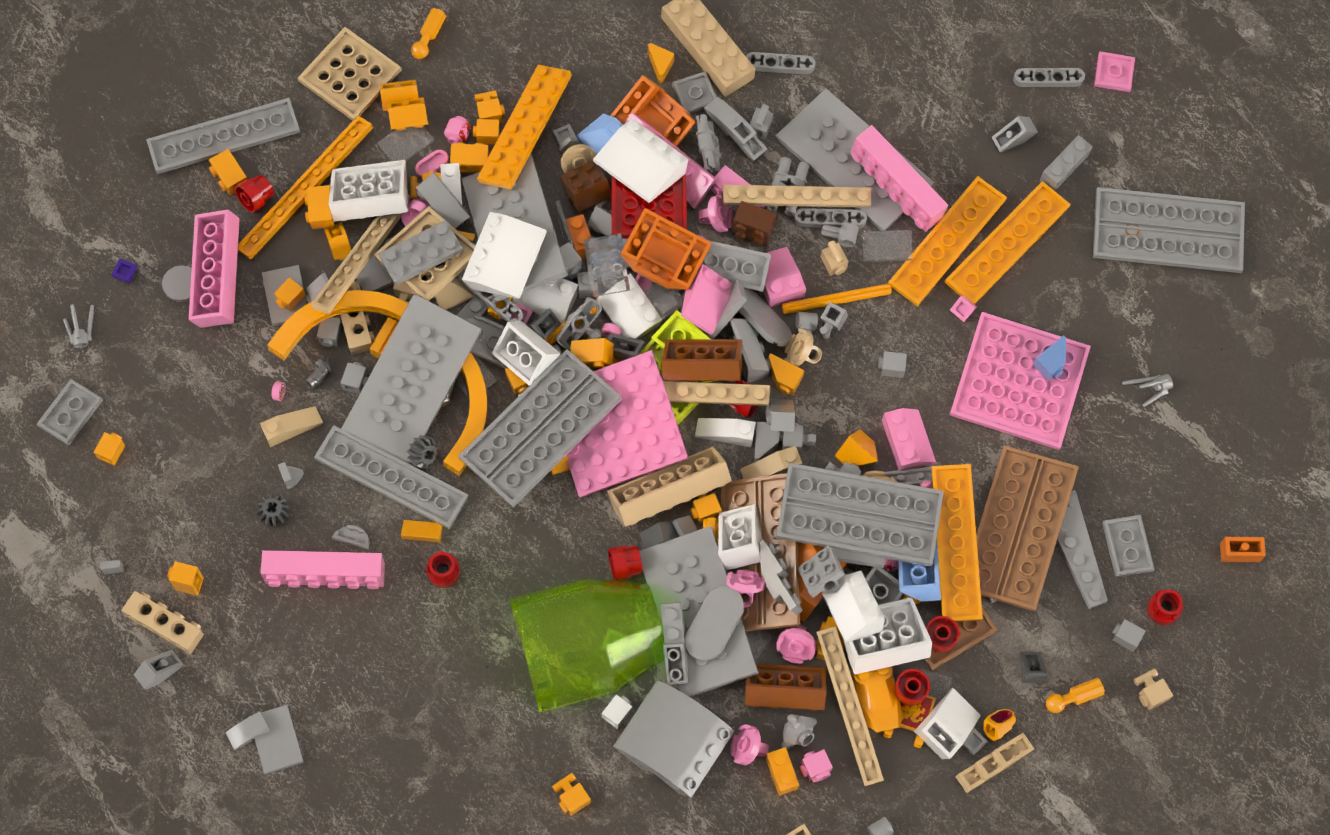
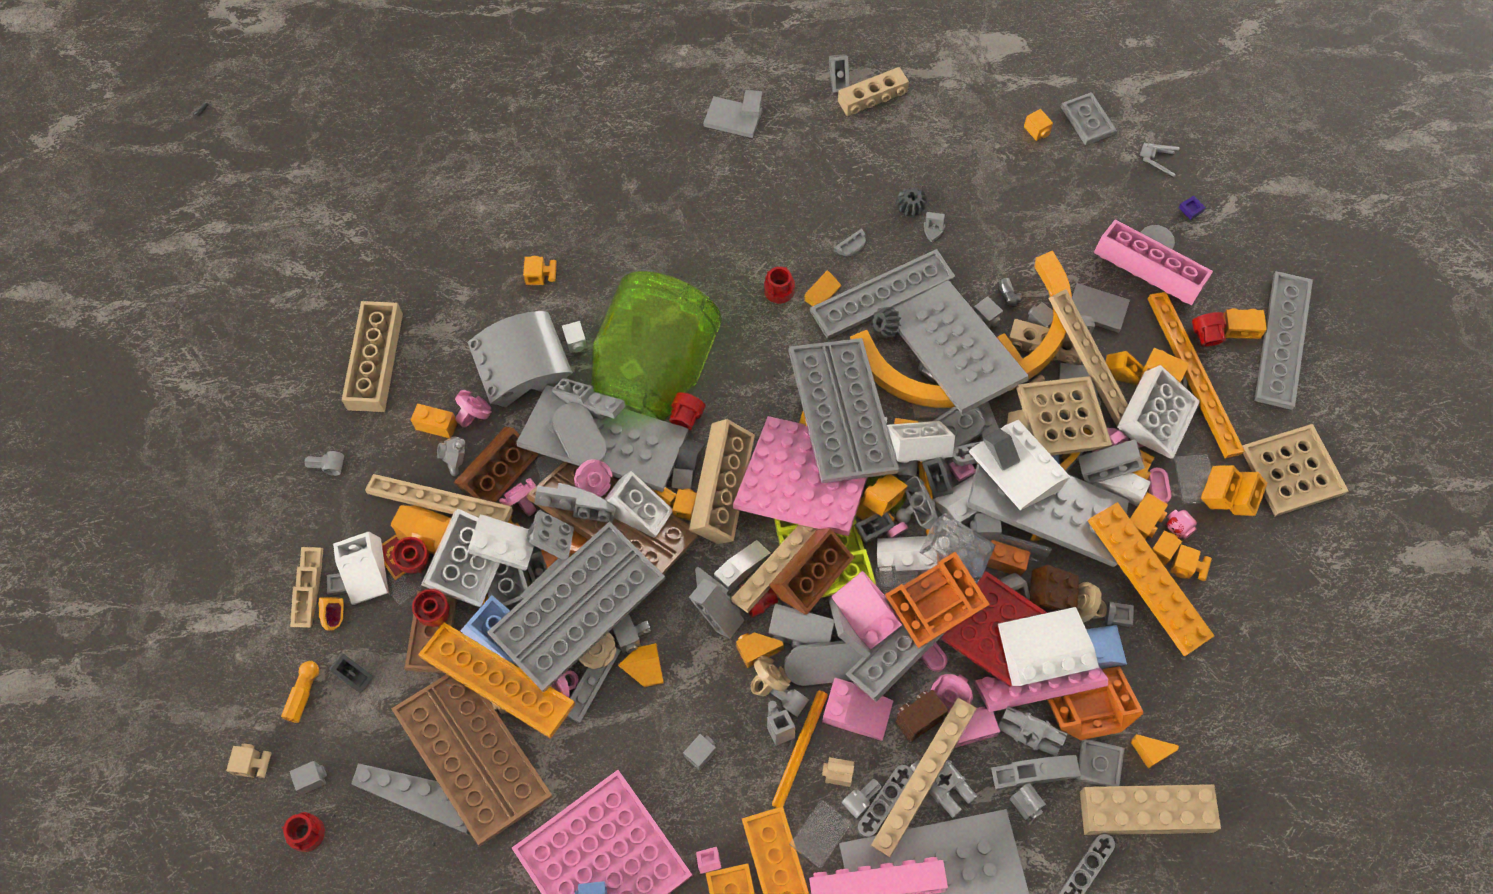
camera: 130 degrees right, 5 degrees down
(111, 567) = (939, 82): light grey tile -> none
(185, 578) = (894, 115): light orange brick -> none
(278, 391) = (1012, 256): bright pink tile -> none
(289, 295) = (1094, 302): light orange brick -> none
(290, 425) = (976, 249): tan slope -> none
(323, 568) = (836, 203): bright pink brick -> none
(421, 252) = (1066, 408): light grey plate -> none
(429, 32) = (1304, 560): light orange piece -> none
(503, 271) = (1002, 448): none -> dark grey slope
(773, 464) = (681, 582): tan slope -> none
(797, 438) = (691, 618): light grey brick -> none
(816, 766) = (418, 449): bright pink brick -> none
(908, 438) = (622, 715): bright pink slope -> none
(1128, 546) = (382, 844): light grey tile -> none

